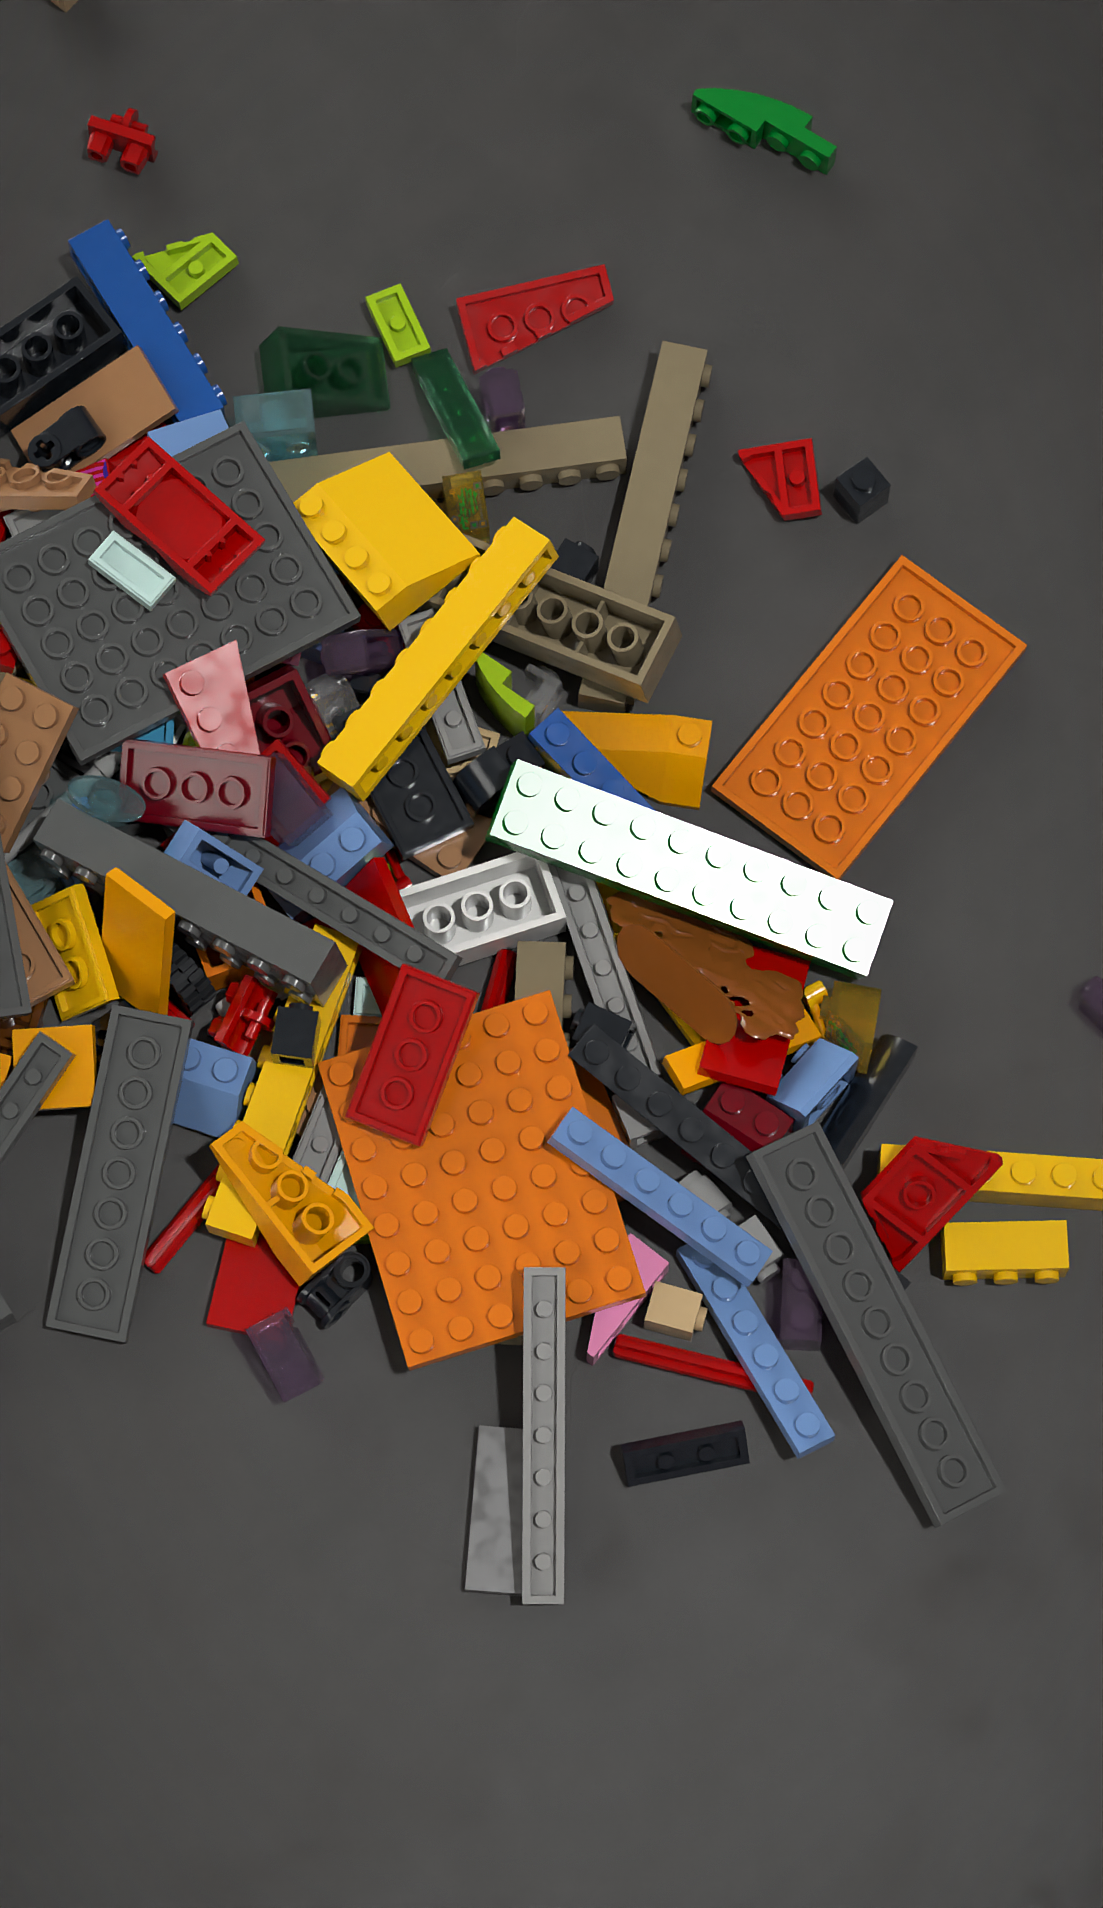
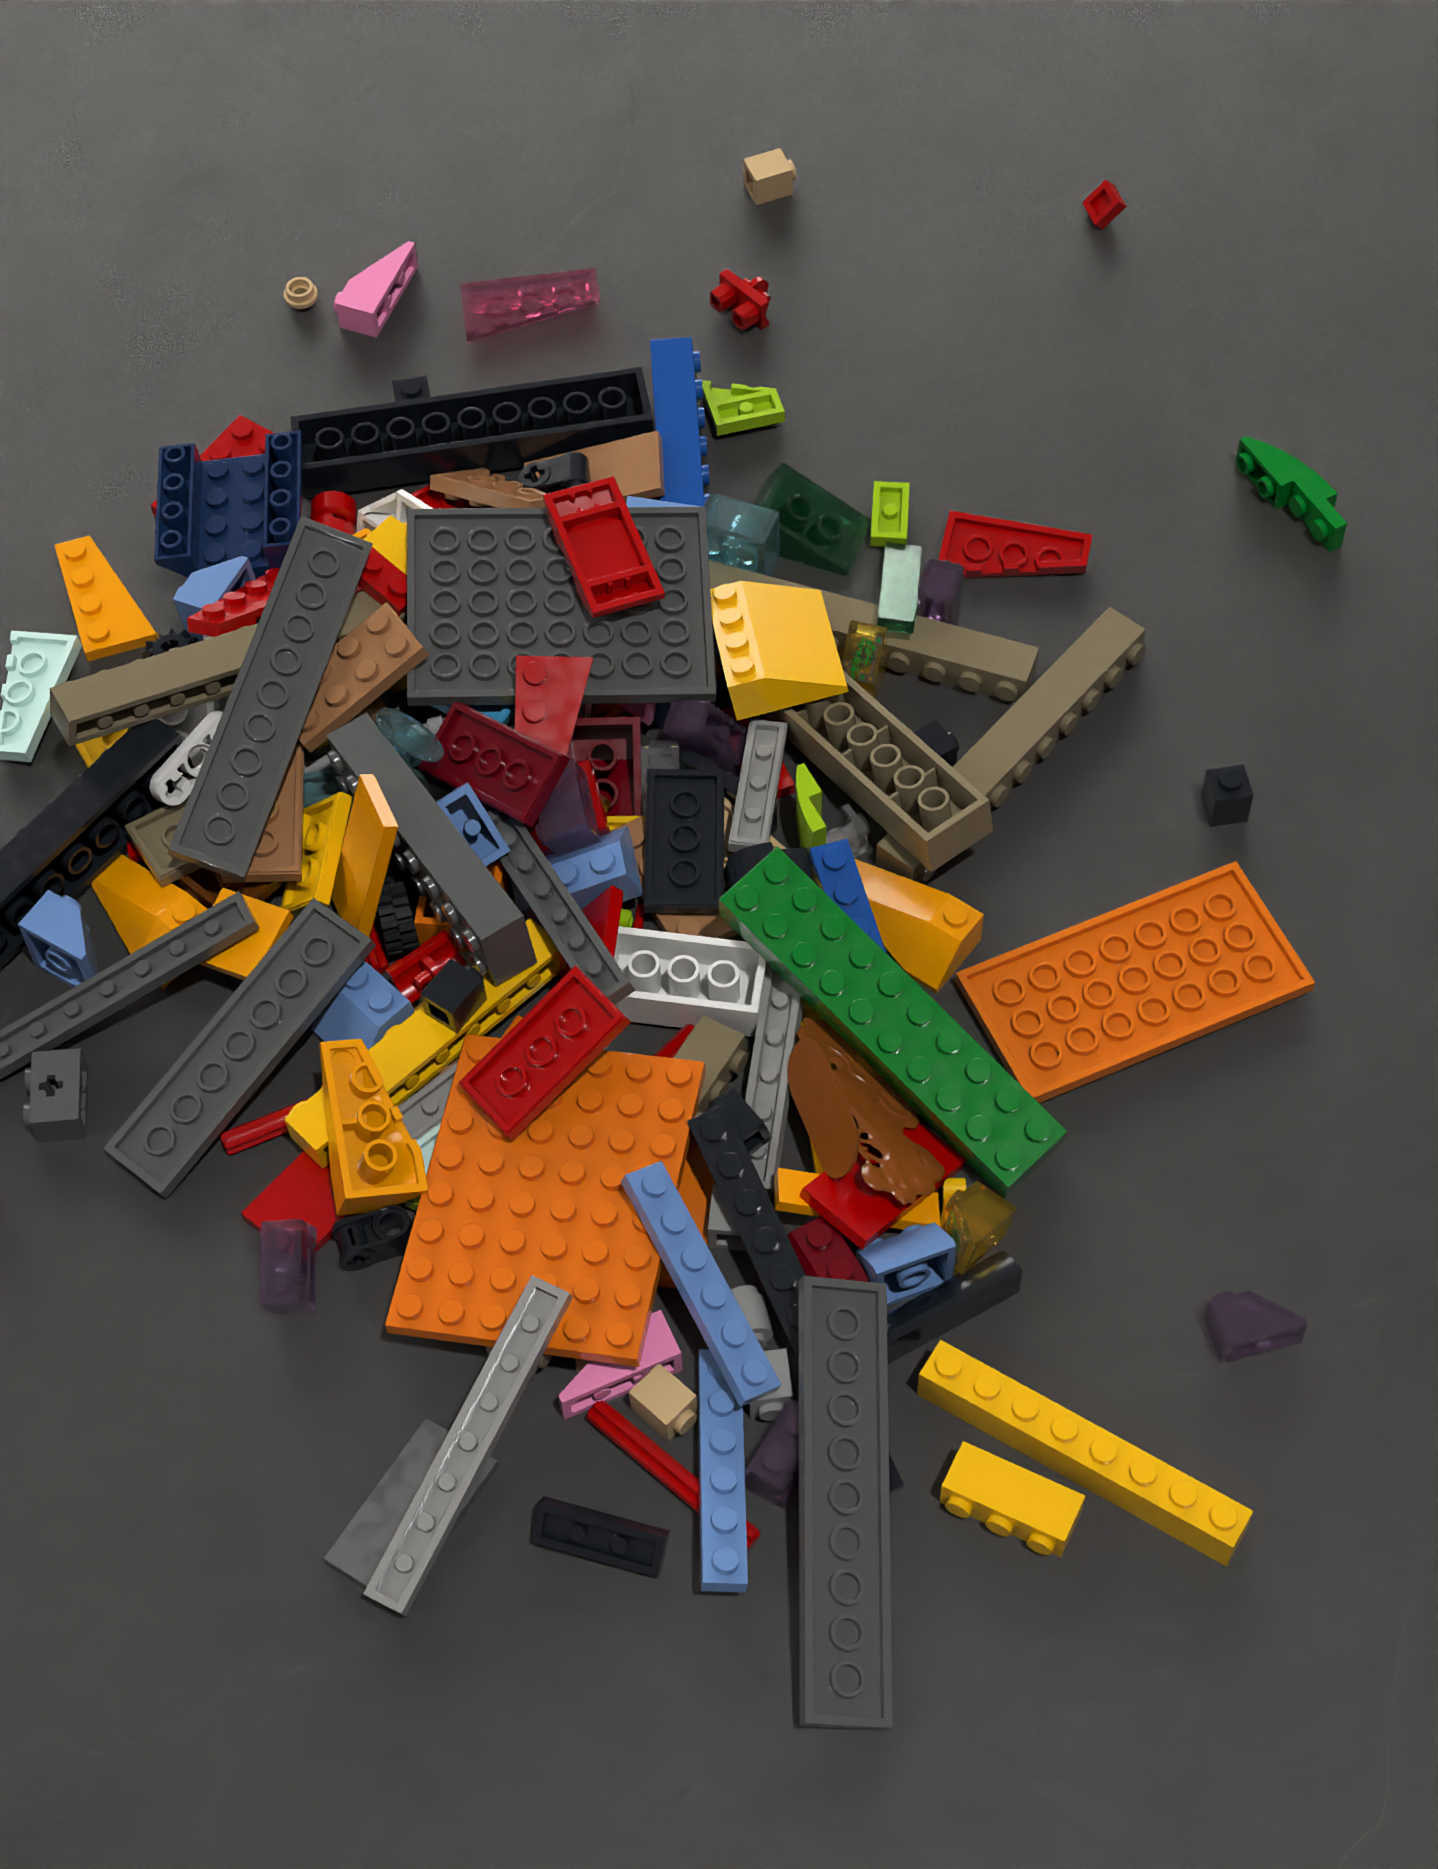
camera: 30 degrees right, 15 degrees down
(132, 570) = (540, 573): light aqua tile -> none
(437, 658) = (761, 751): yellow brick -> none
(786, 476) = (1165, 759): red wing -> none
(923, 1192) = (954, 1399): red wing -> none

